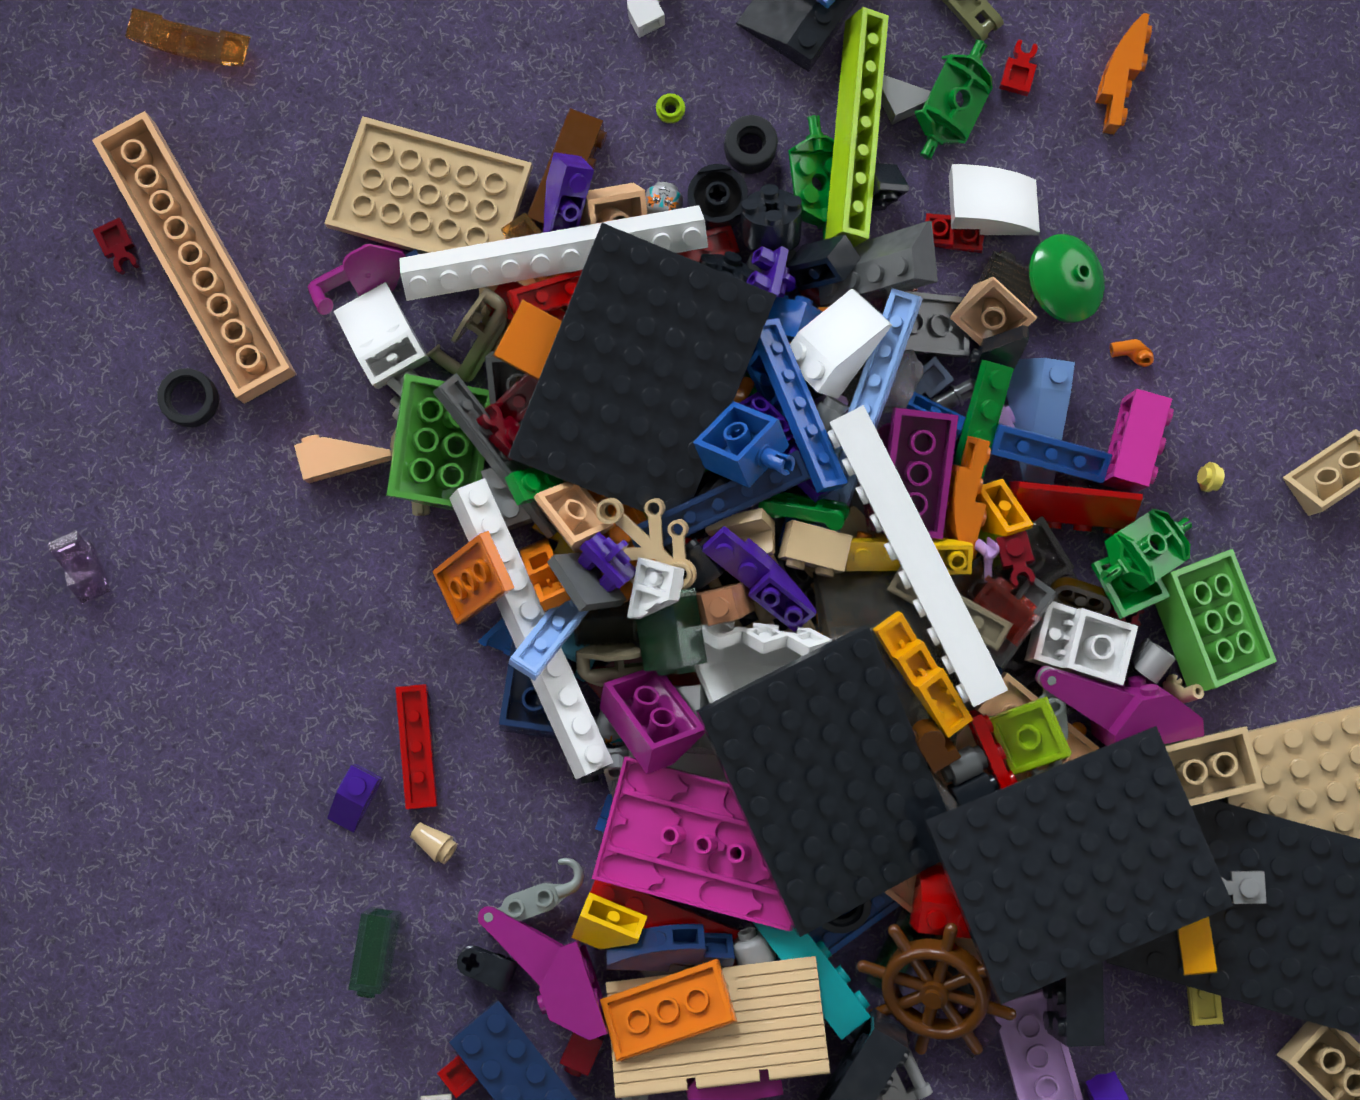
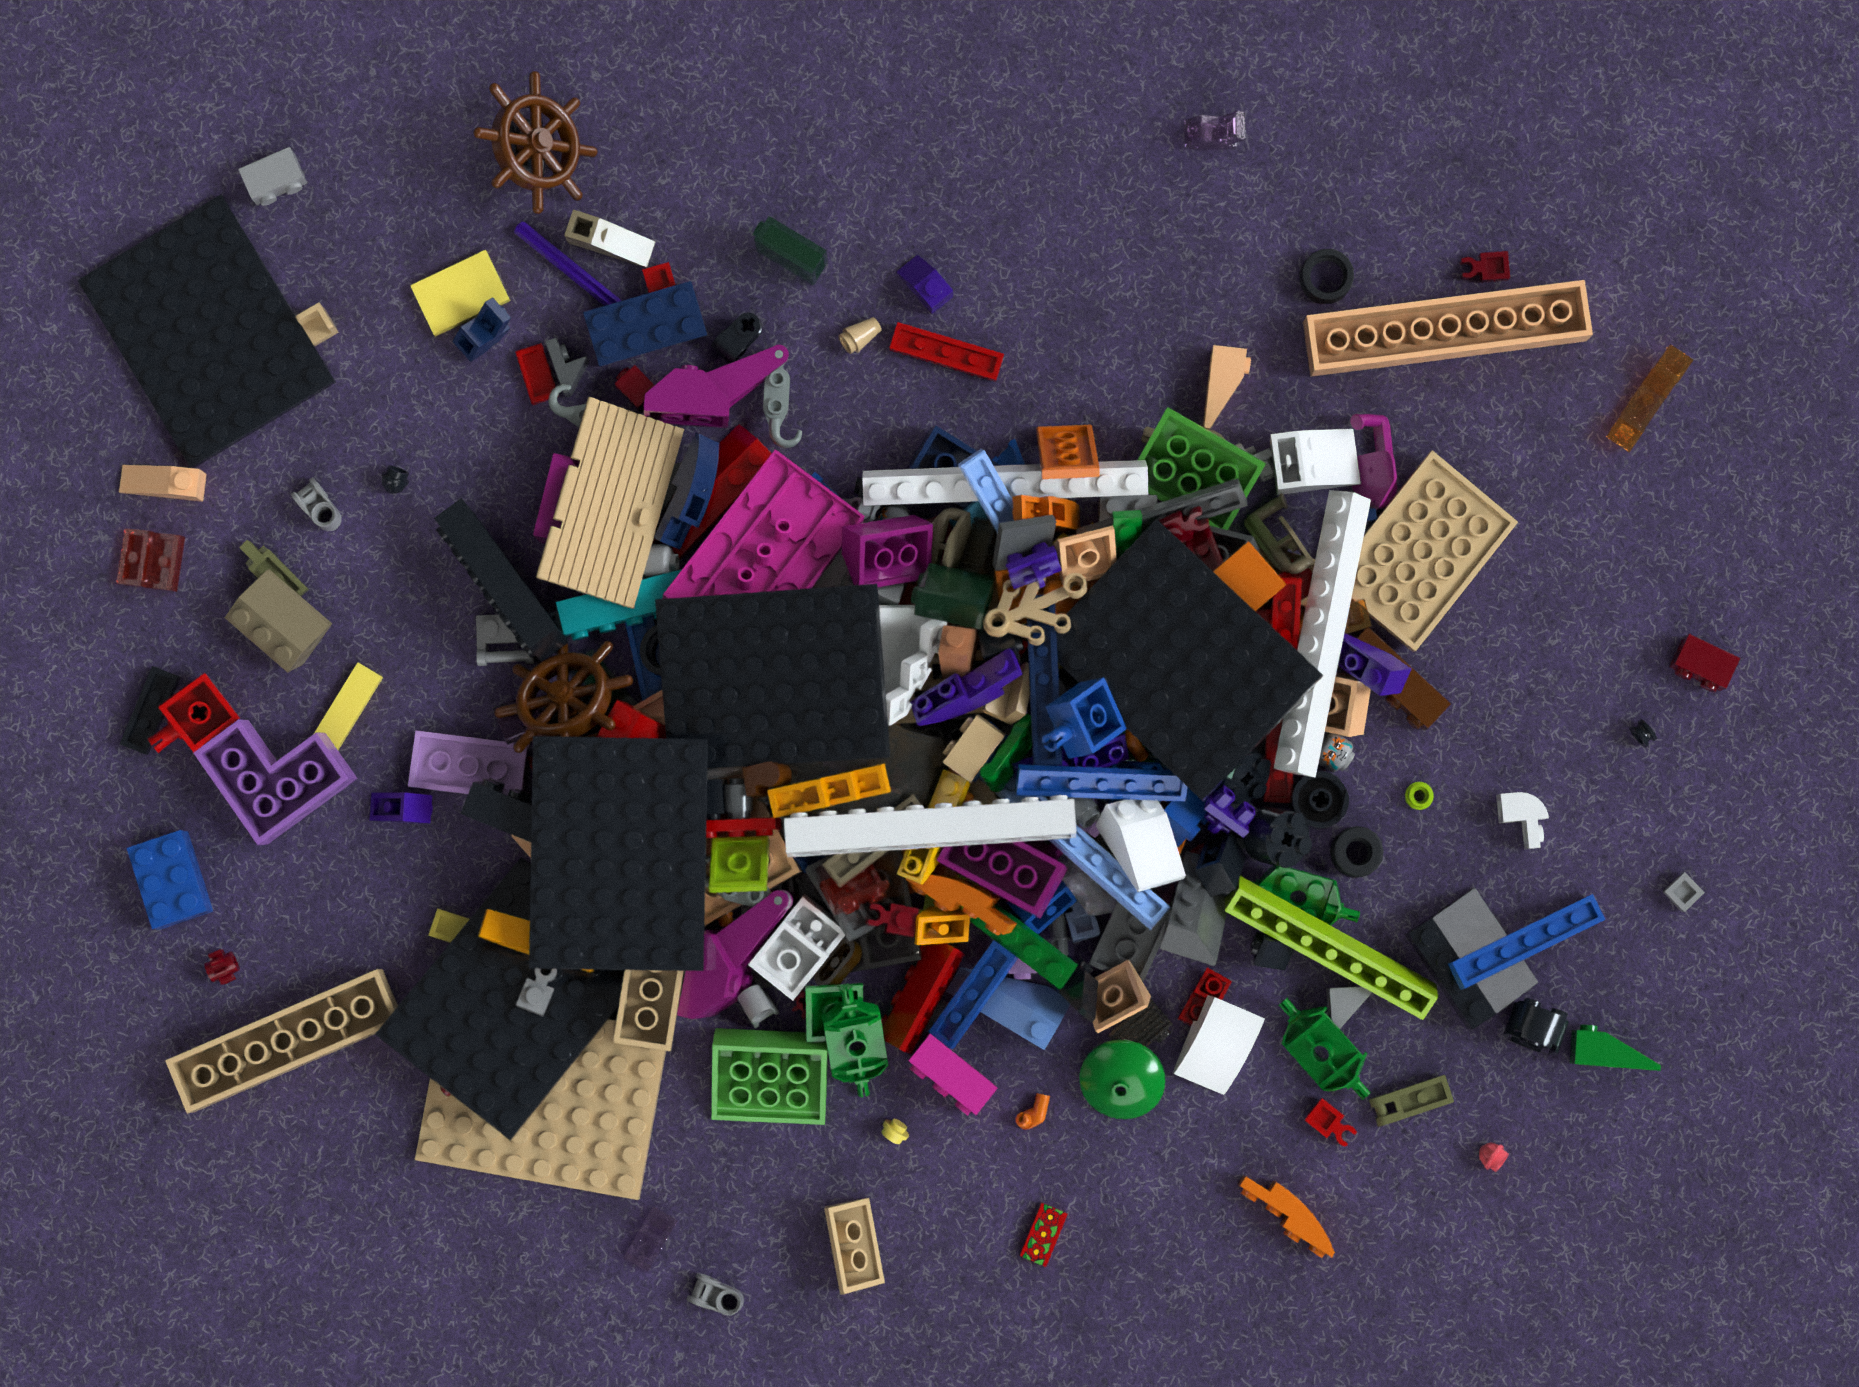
camera: 115 degrees right, 0 degrees up
(607, 924) = (732, 448): yellow slope -> none
(654, 587) = (994, 594): white wing -> none
(668, 1010) = (641, 468): orange tile -> none
(989, 552) = (907, 896): lavender hand -> none
(1183, 694) = (726, 1017): tan arm -> none
(1243, 296) = (1043, 1234): none -> tile

